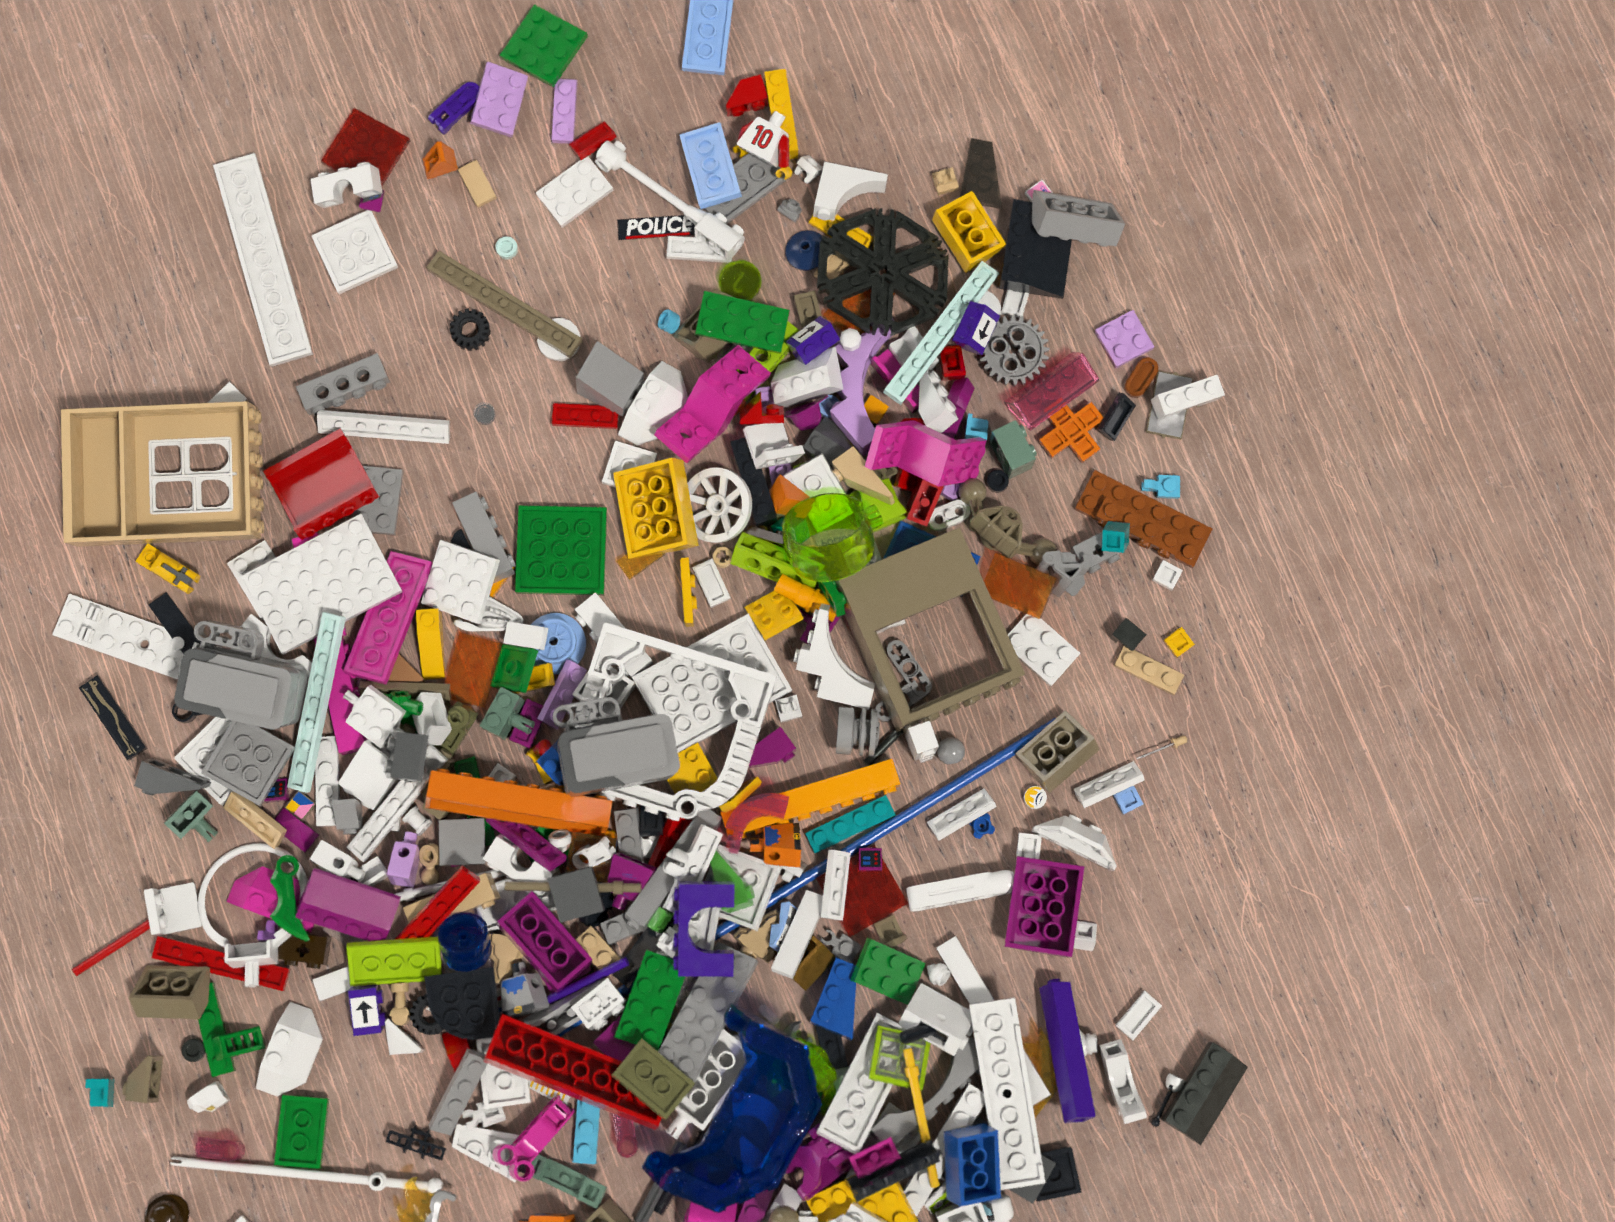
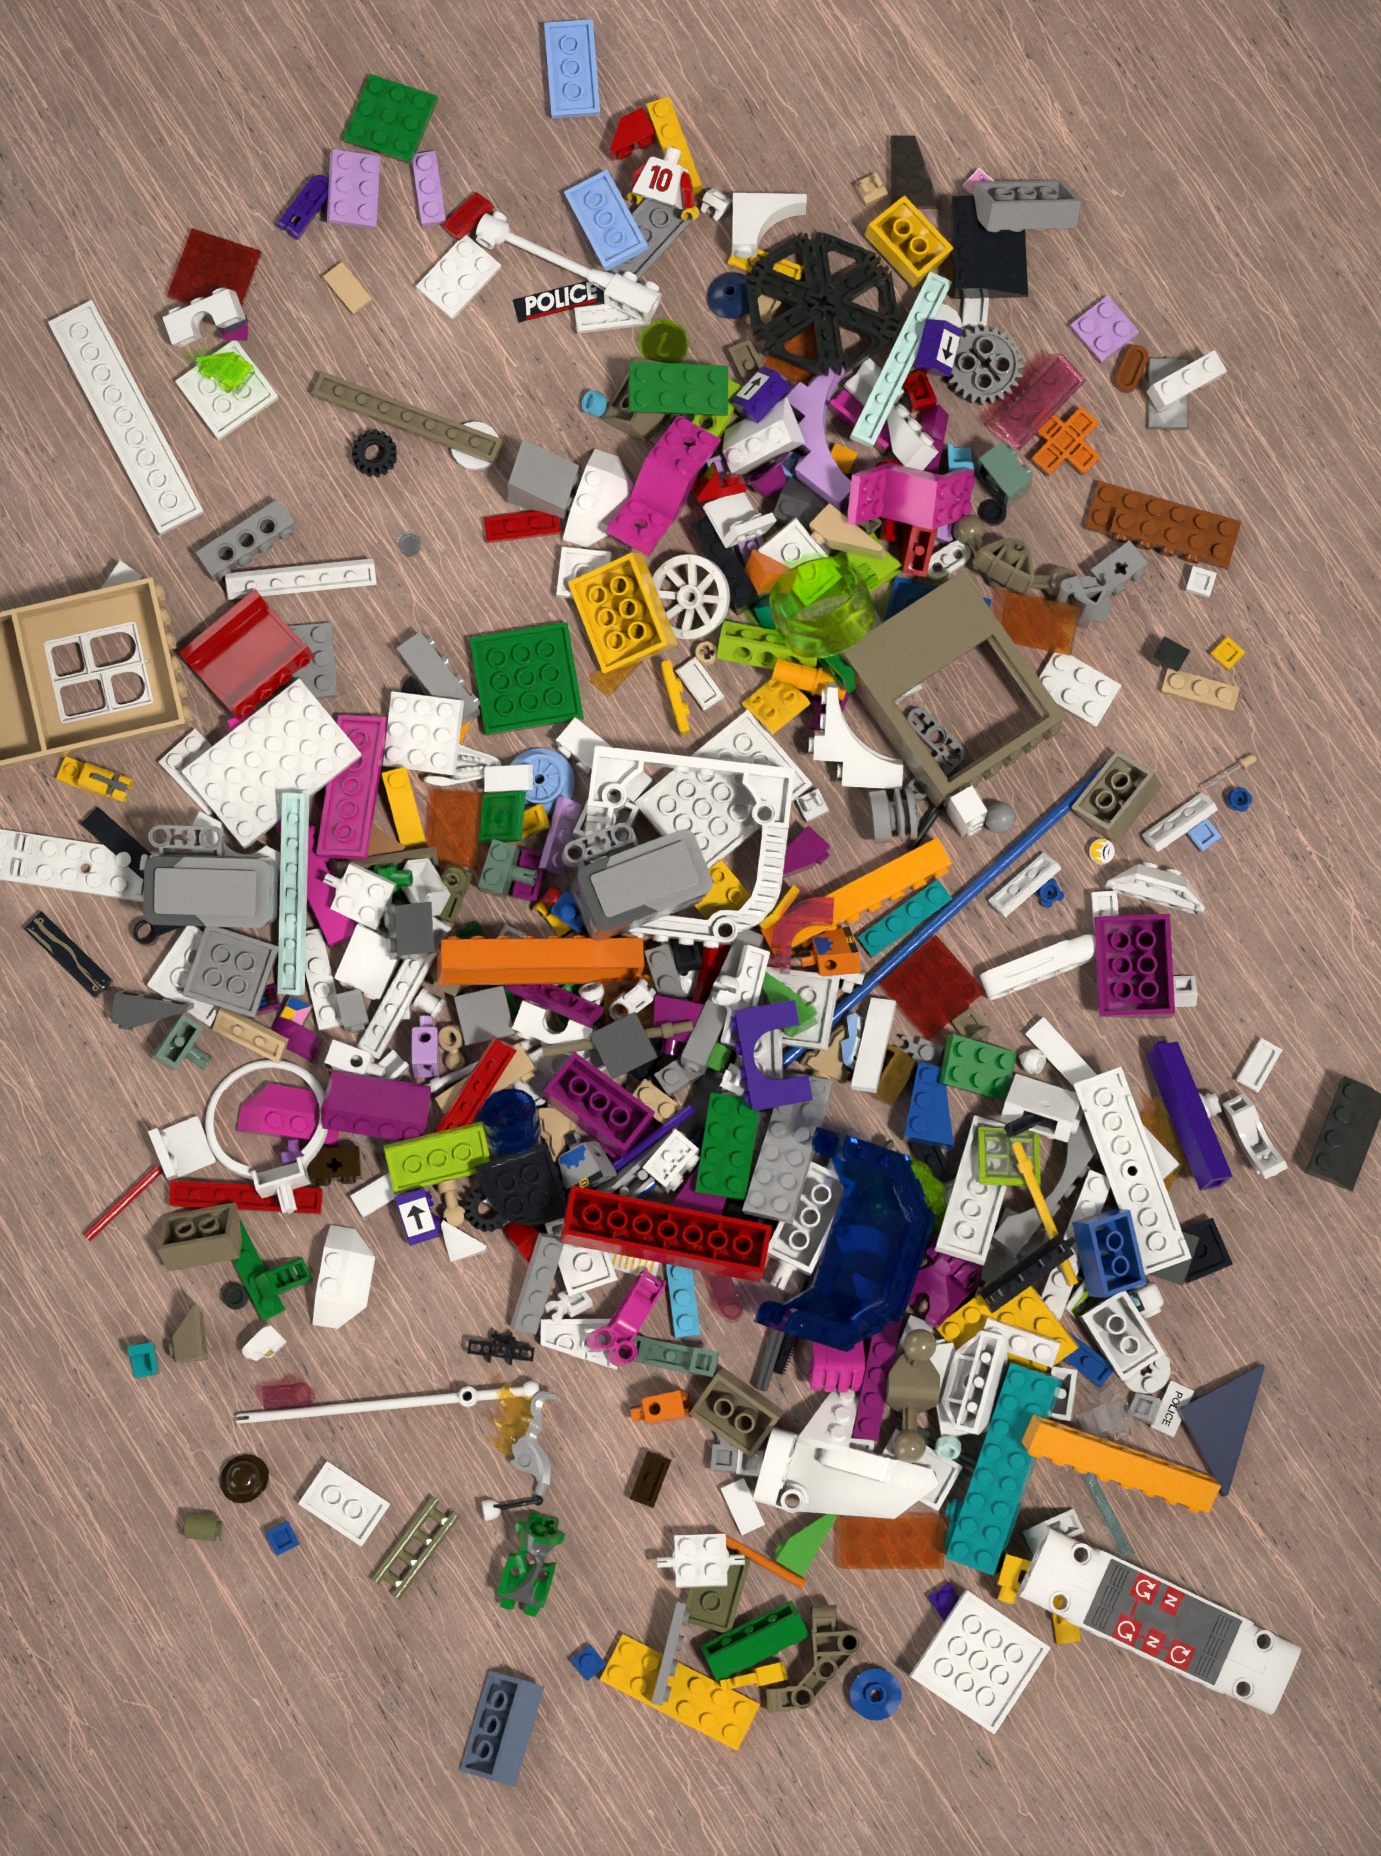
camera: 10 degrees left, 0 degrees up
(286, 907) = (309, 1124): green piece -> none
(301, 1131) = (373, 1360): green plate -> none
(357, 233) = (227, 369): none -> clear neon green slope
(439, 160) = (300, 271): orange slope -> none
(506, 247) = (395, 354): light aqua tile -> none
(653, 1079) = (748, 1225): olive plate -> none
(765, 534) = (749, 618): plate -> none
(790, 209) = (704, 252): light grey plate -> none
(835, 885) = (902, 985): white plate -> none
(850, 339) = (801, 386): white tile -> none
(870, 859) = (935, 951): slope -> none
(874, 1157) = (1002, 1262): dark pink slope -> none
(1115, 537) = (1136, 549): teal panel -> none
(1116, 416) = (1112, 417): black tile -> none
(1166, 486) = (1181, 484): medium azure plate -> none
(1169, 769) = (1239, 793): none -> blue plate
(1173, 1084) = (1310, 1131): hinge -> none

